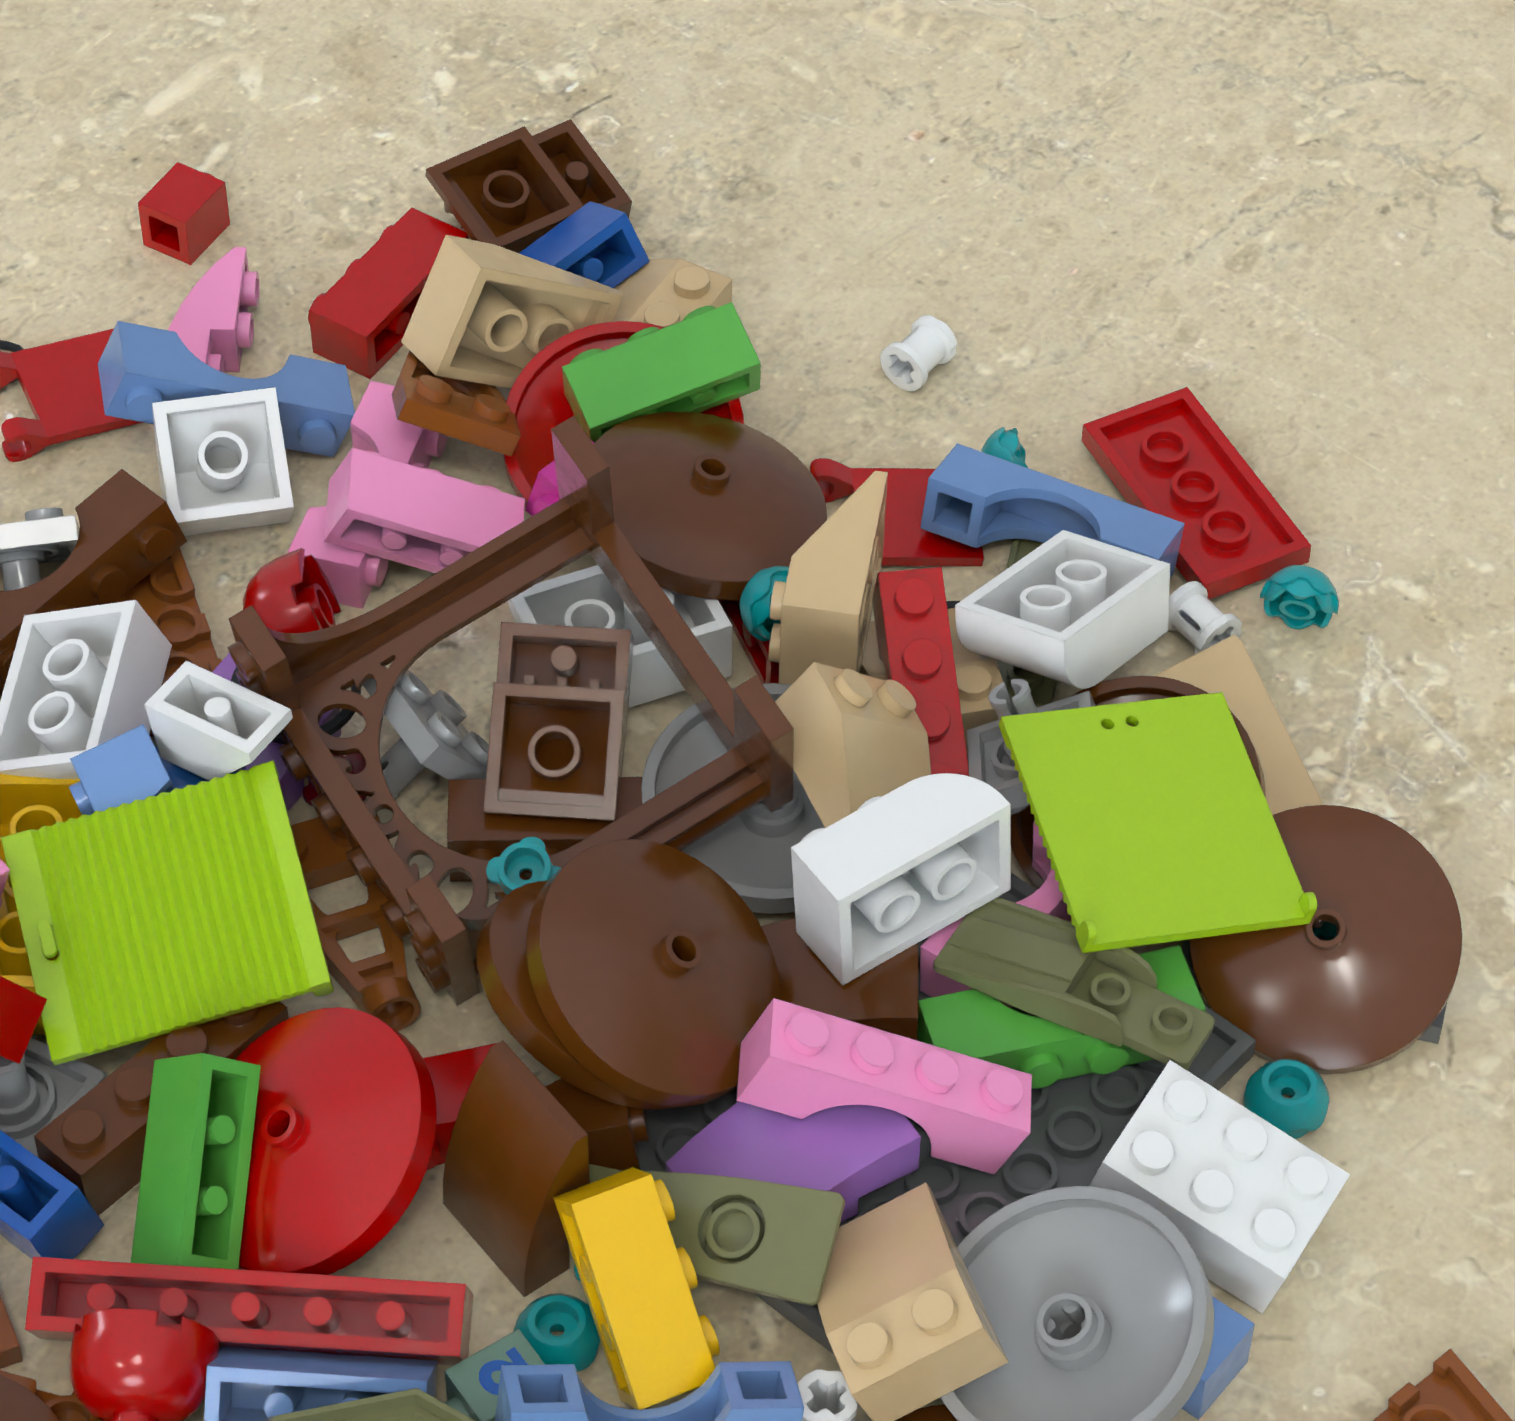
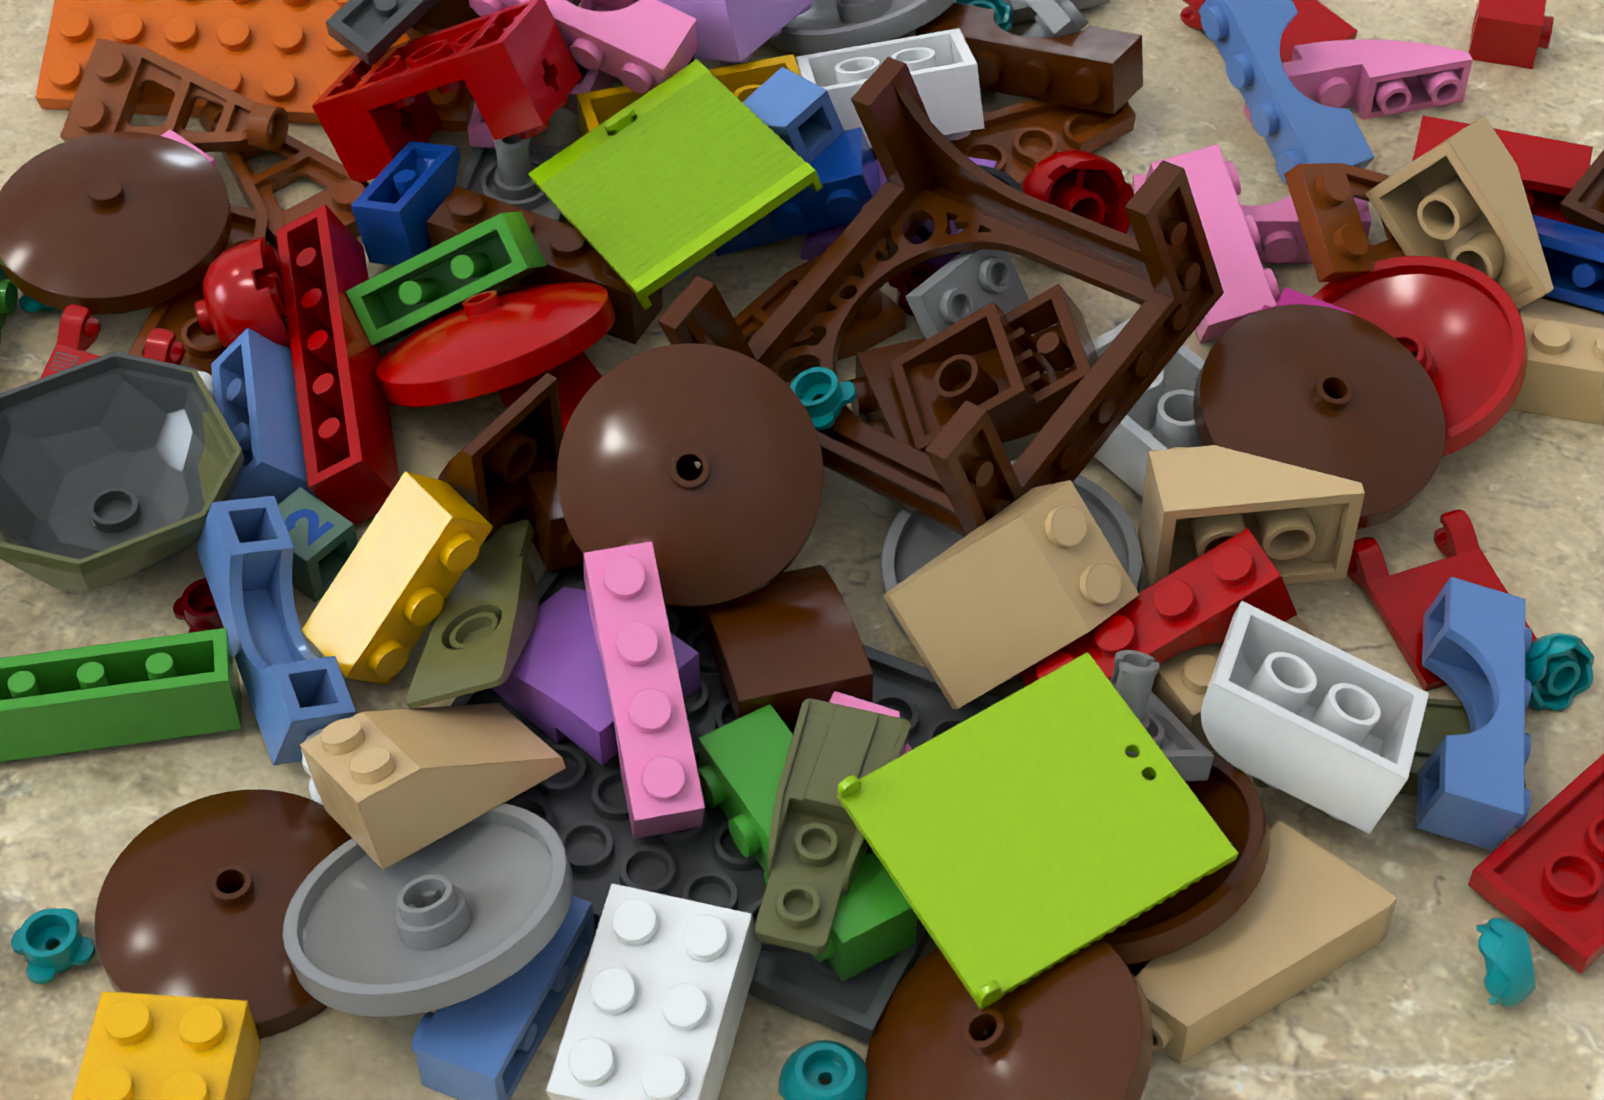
camera: 75 degrees right, 0 degrees up
(211, 722) = (831, 127): white slope -> none
(223, 461) = (1204, 98): white slope -> none
(664, 370) = (1460, 340): bright green brick -> none
(900, 870) = (855, 613): white brick -> none
(1199, 618) = (1428, 879): white bush -> none

